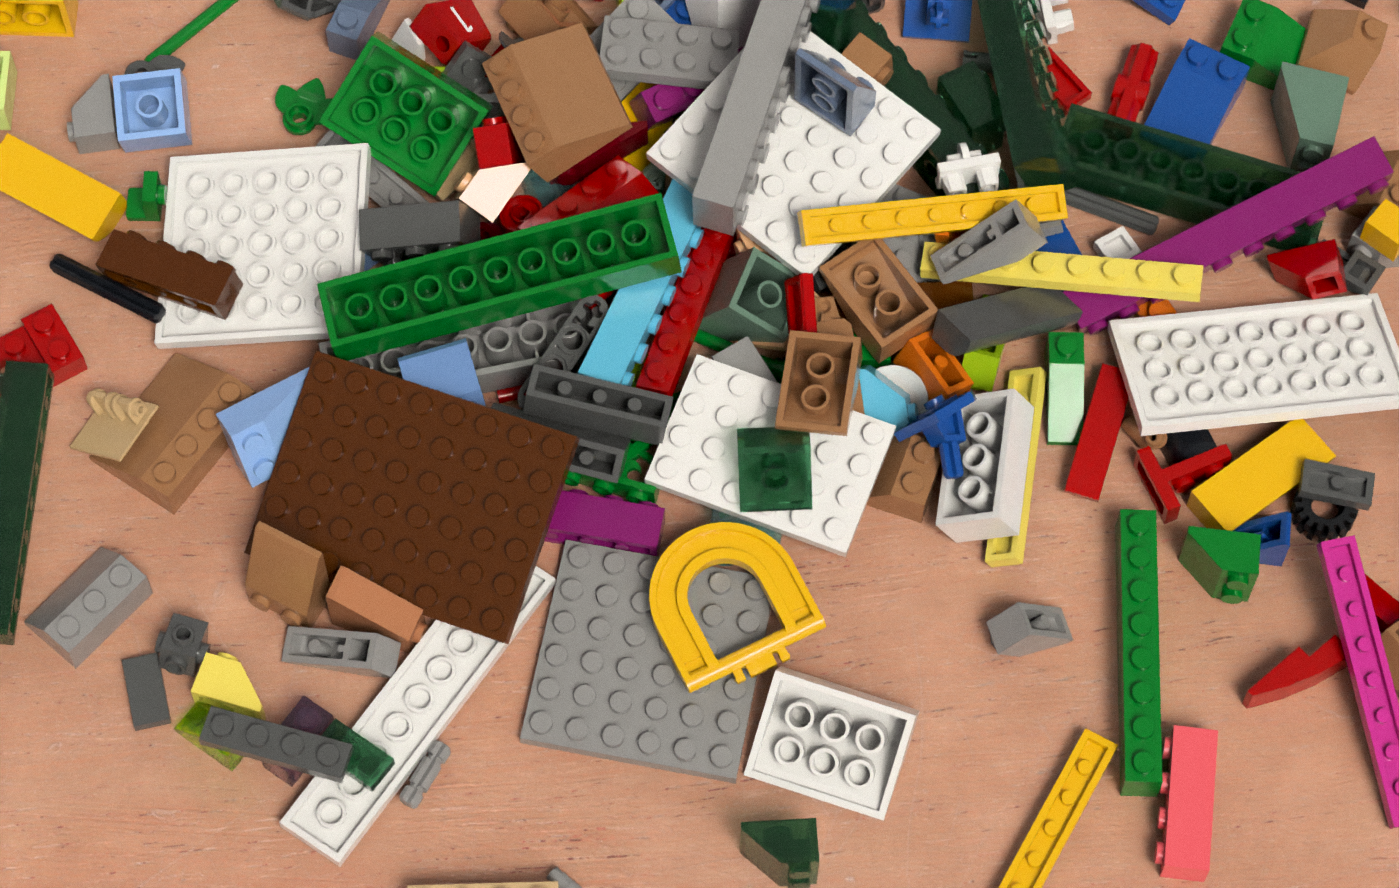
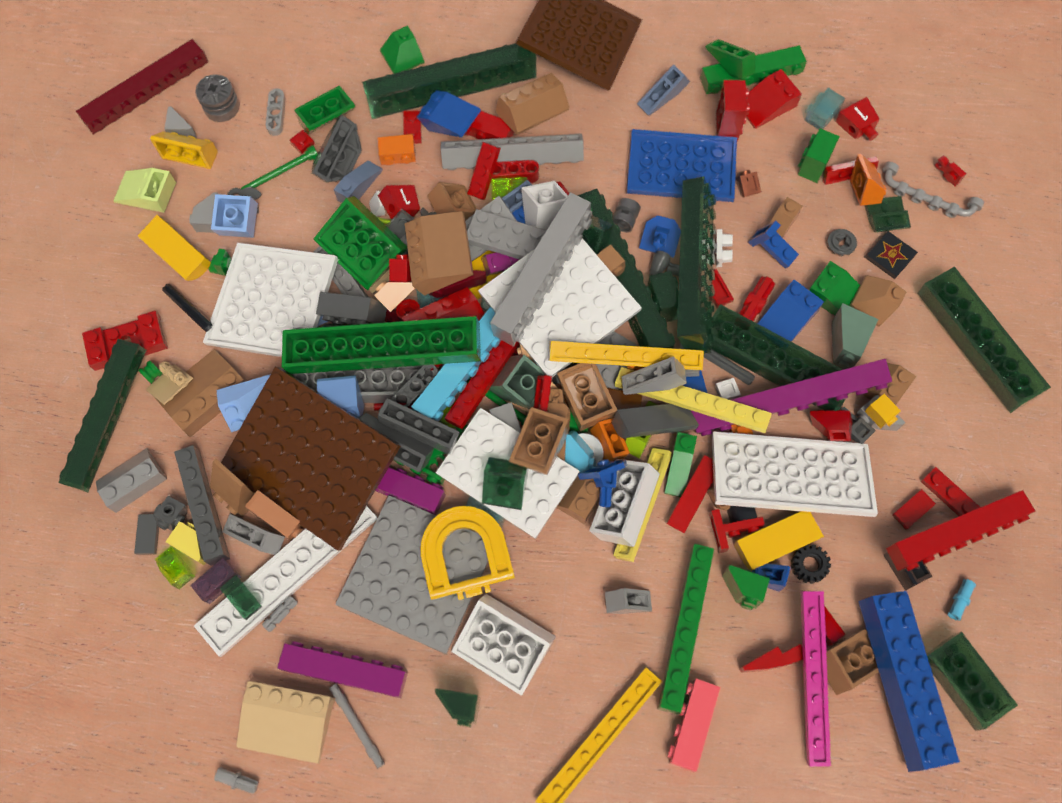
camera: 15 degrees right, 5 degrees up
(71, 413) = (150, 371): none -> green wheel
(170, 273) = (218, 307): reddish brown brick -> none
(234, 619) = (201, 505): none -> dark grey brick
(276, 744) = (198, 584): dark grey plate -> none
(305, 103) = (312, 226): green plate -> none
(563, 841) = (343, 670): none -> magenta brick
(832, 91) = (584, 275): sand blue slope -> none
(946, 53) = (659, 262): none -> dark grey cone
(968, 168) = (652, 331): white hips -> none
(1336, 484) = (820, 554): dark grey plate -> none

